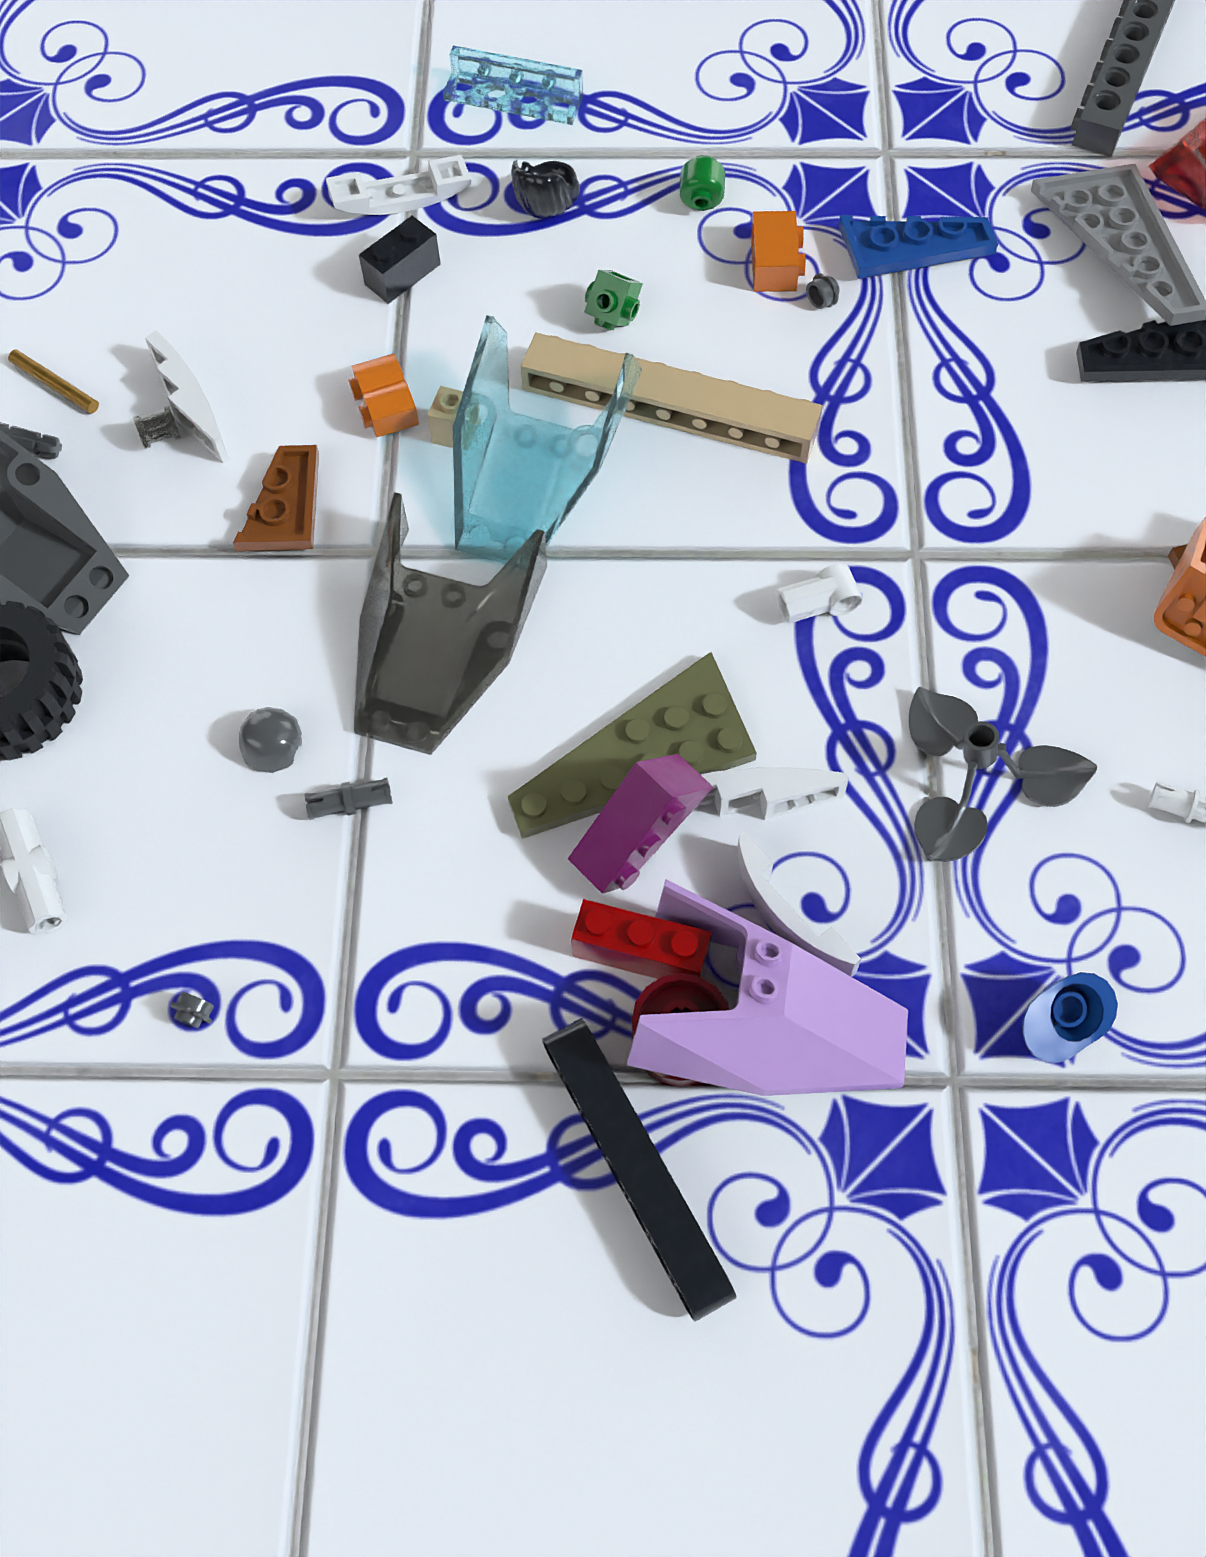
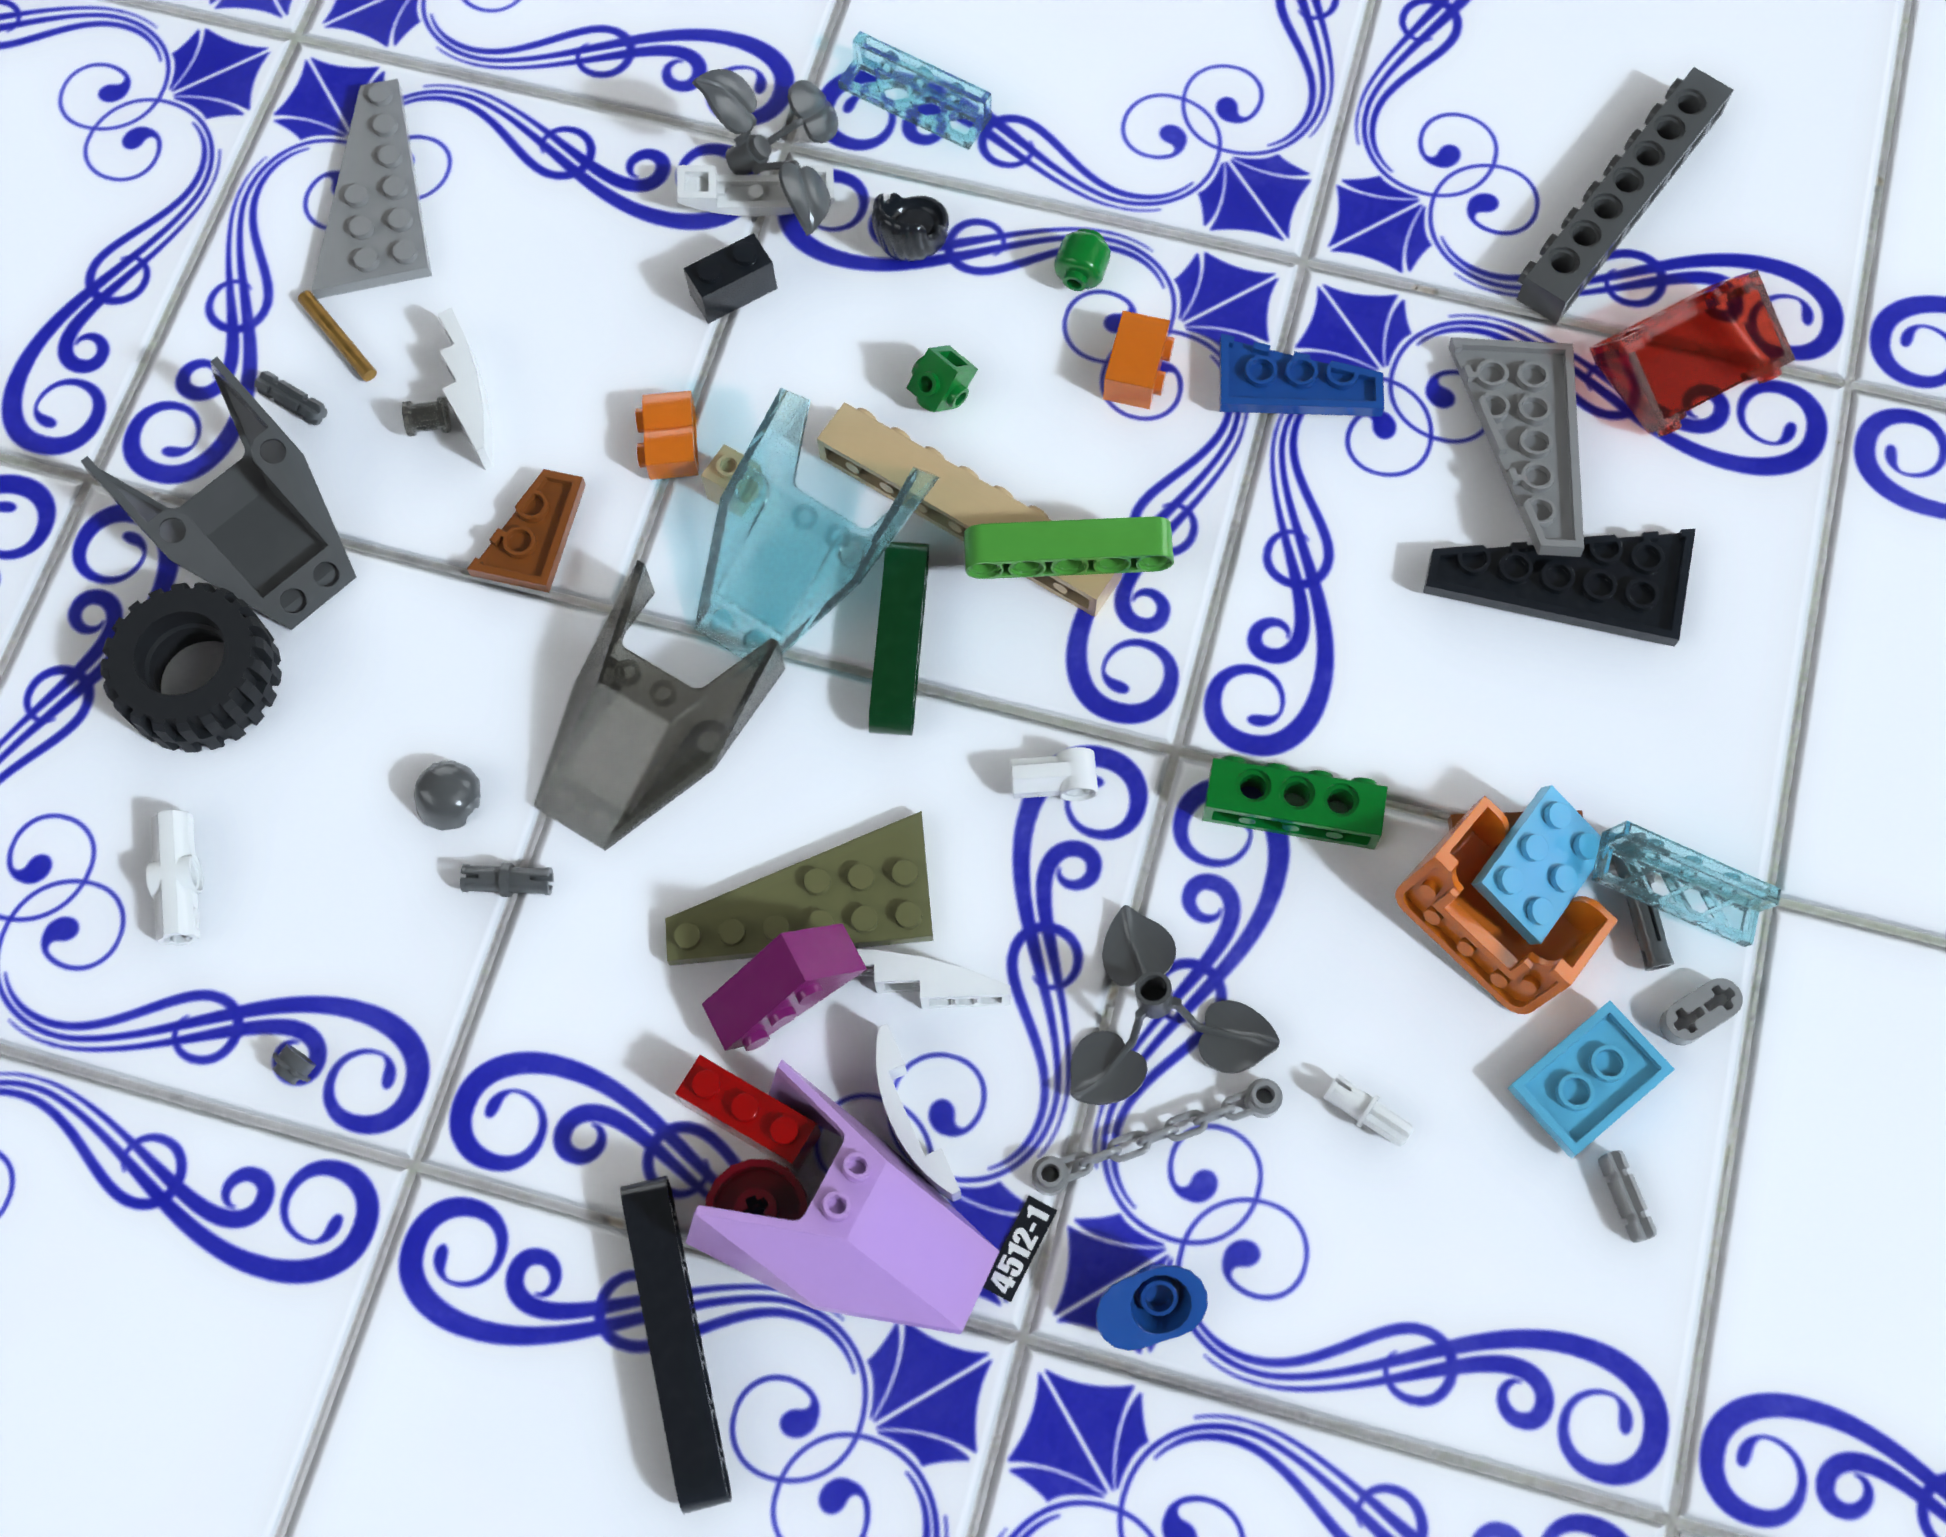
camera: 15 degrees right, 5 degrees up
(59, 273) = (376, 210): none -> light grey wing
(389, 155) = (733, 106): none -> dark grey plant
(644, 515) = (899, 639): none -> dark green beam
(774, 400) = (1068, 547): none -> bright green beam
(823, 291) = (1175, 419): dark grey plate -> none
(924, 1003) = (1019, 1248): none -> black sticker
(1088, 826) = (1253, 1106): none -> light grey piece
(1096, 574) = (1313, 820): none -> green brick

